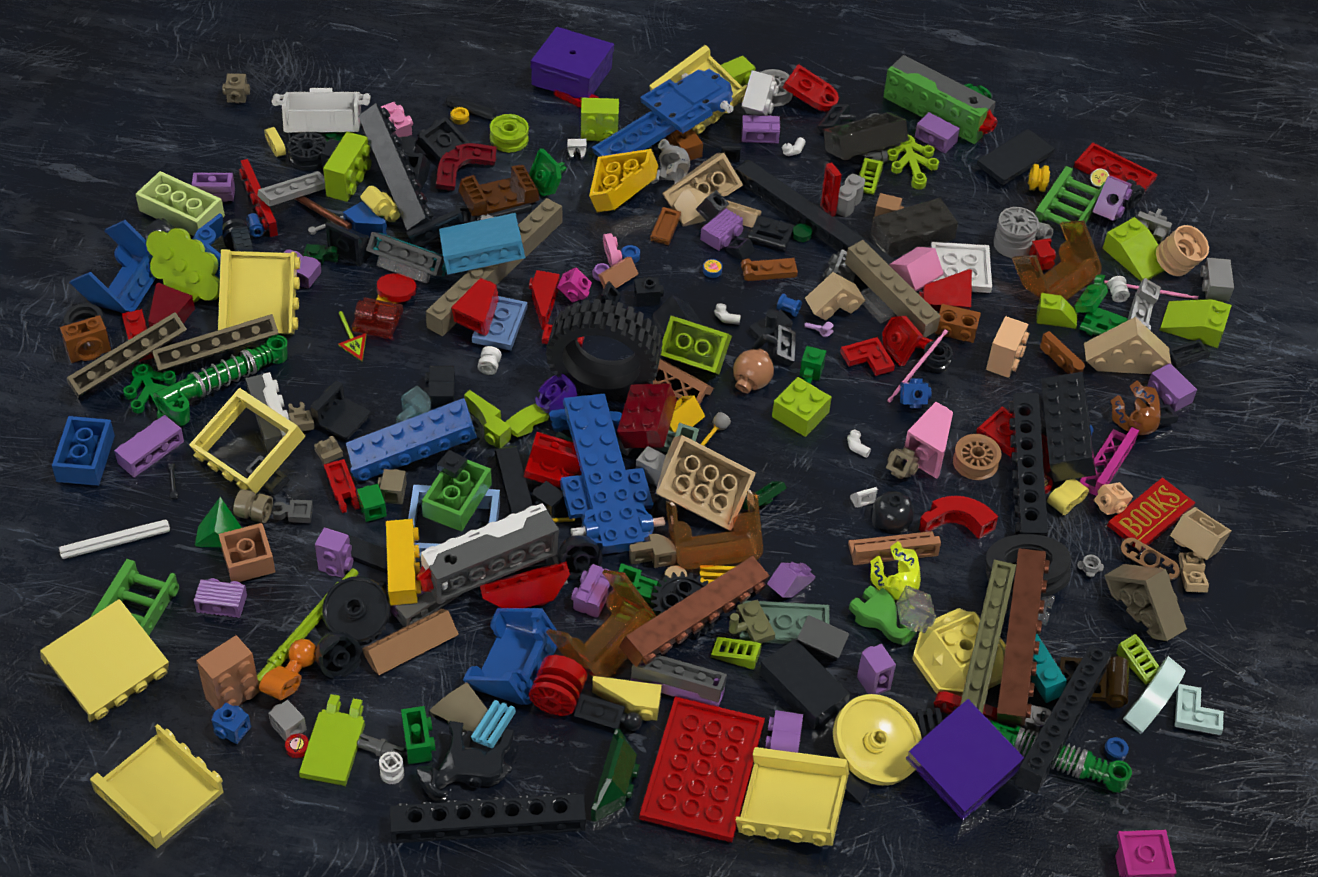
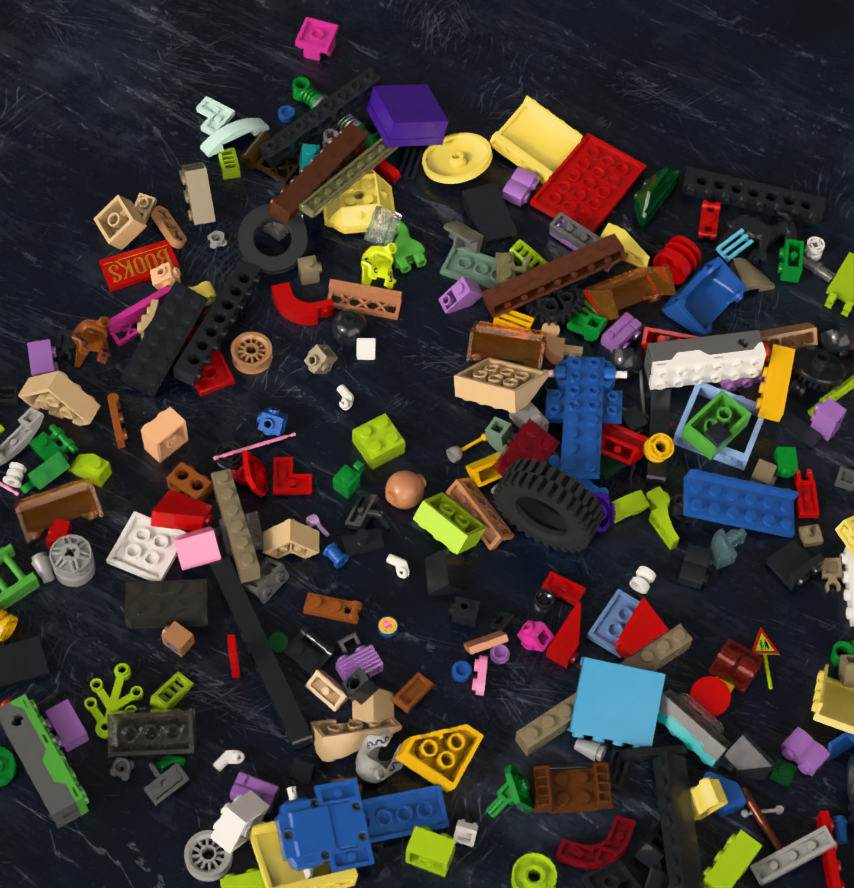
camera: 160 degrees left, 10 degrees up
(512, 459) = (664, 442): none -> yellow wheel
(535, 771) = (709, 220): none -> red plate
(767, 493) = (445, 373): dark green plate -> none
(811, 89) = (171, 834): red tile -> none
(850, 194) = (203, 669): light grey brick -> none
(876, 670) = (434, 200): medium lavender brick -> none
(929, 438) = (286, 368): bright pink slope -> none
(971, 554) = (309, 270): none -> dark tan brick
(1100, 456) = (147, 319): none -> tan slope

